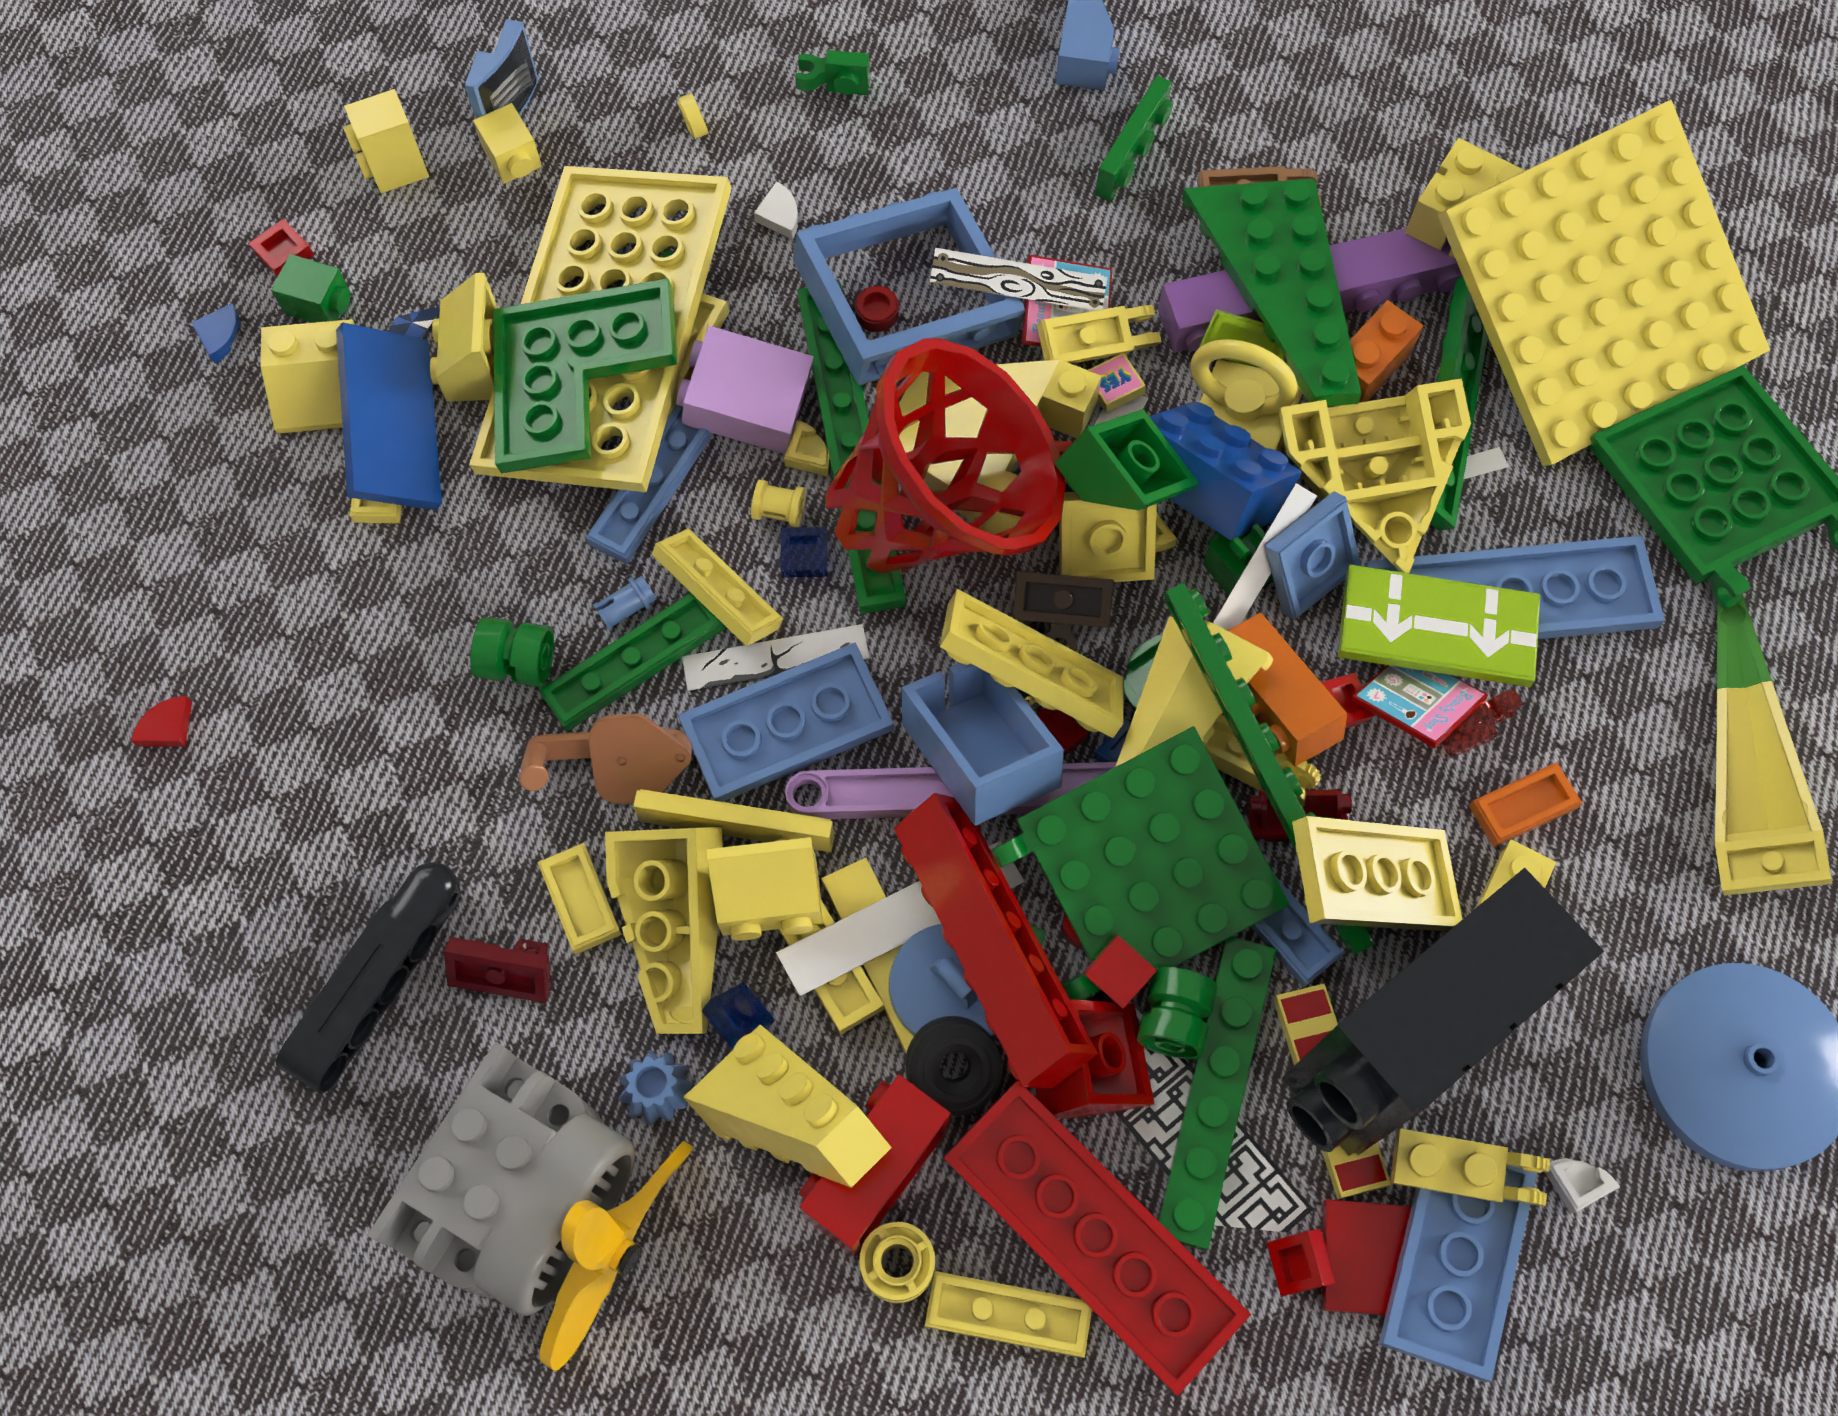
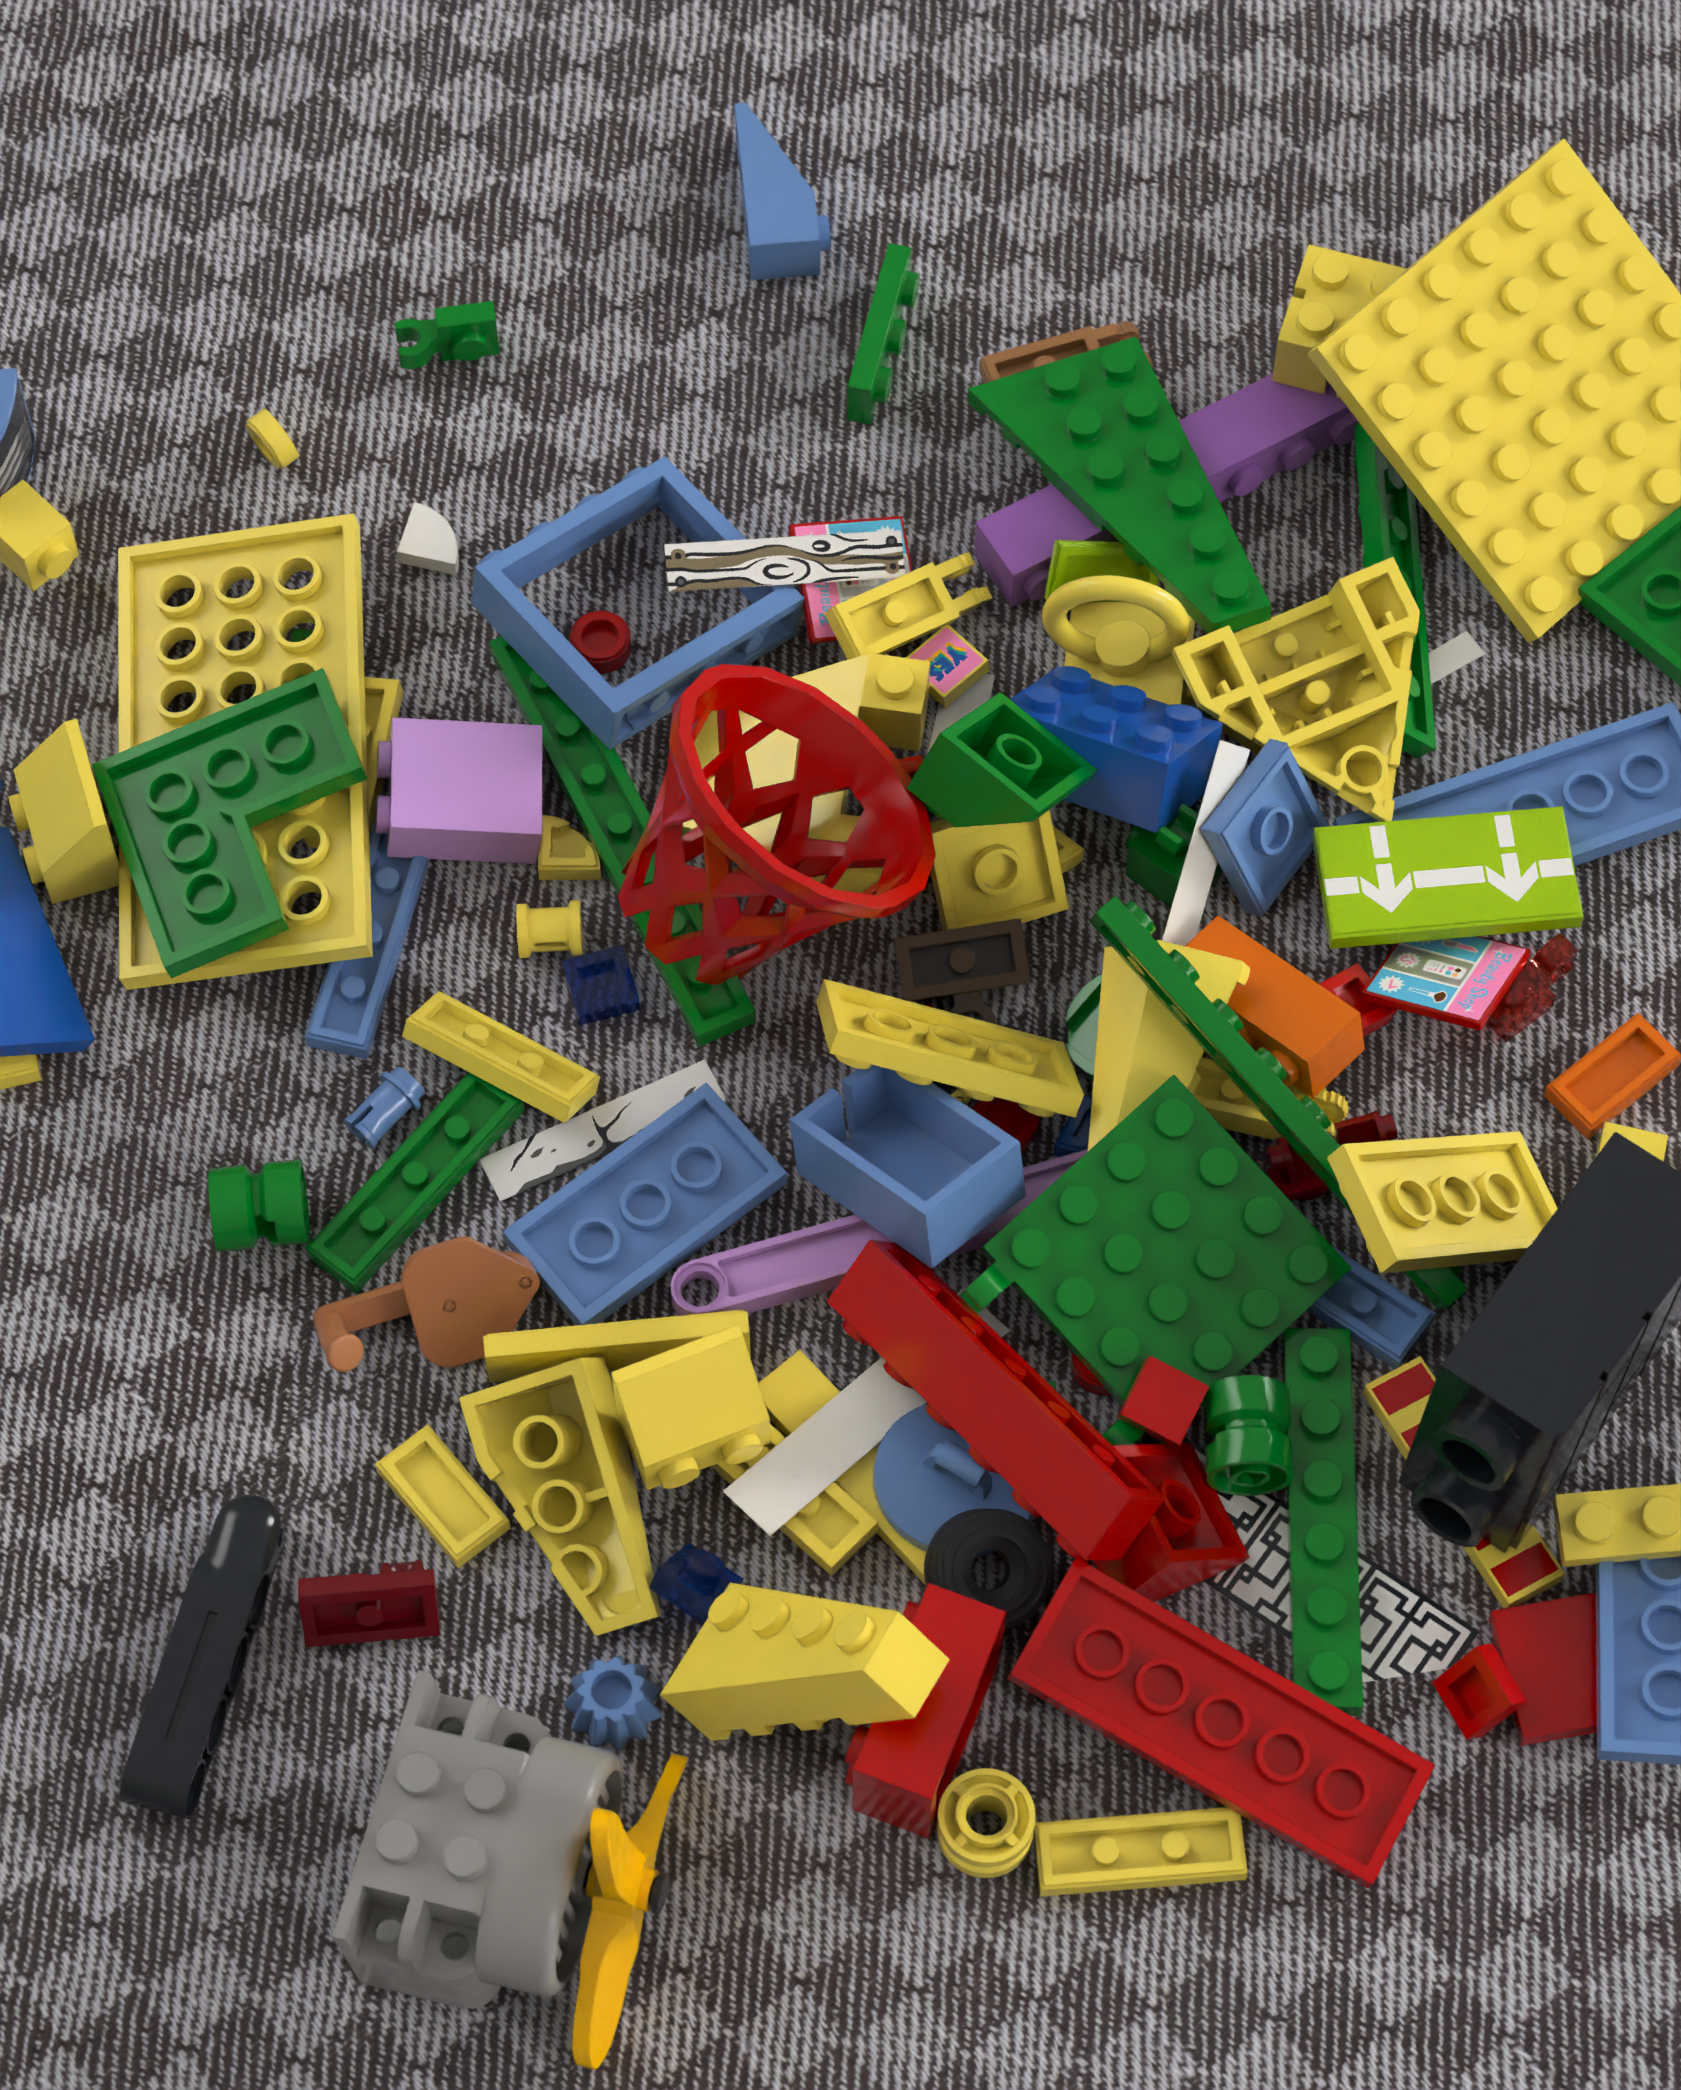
camera: 15 degrees left, 5 degrees down
(1383, 347) = (1283, 537): orange brick -> none

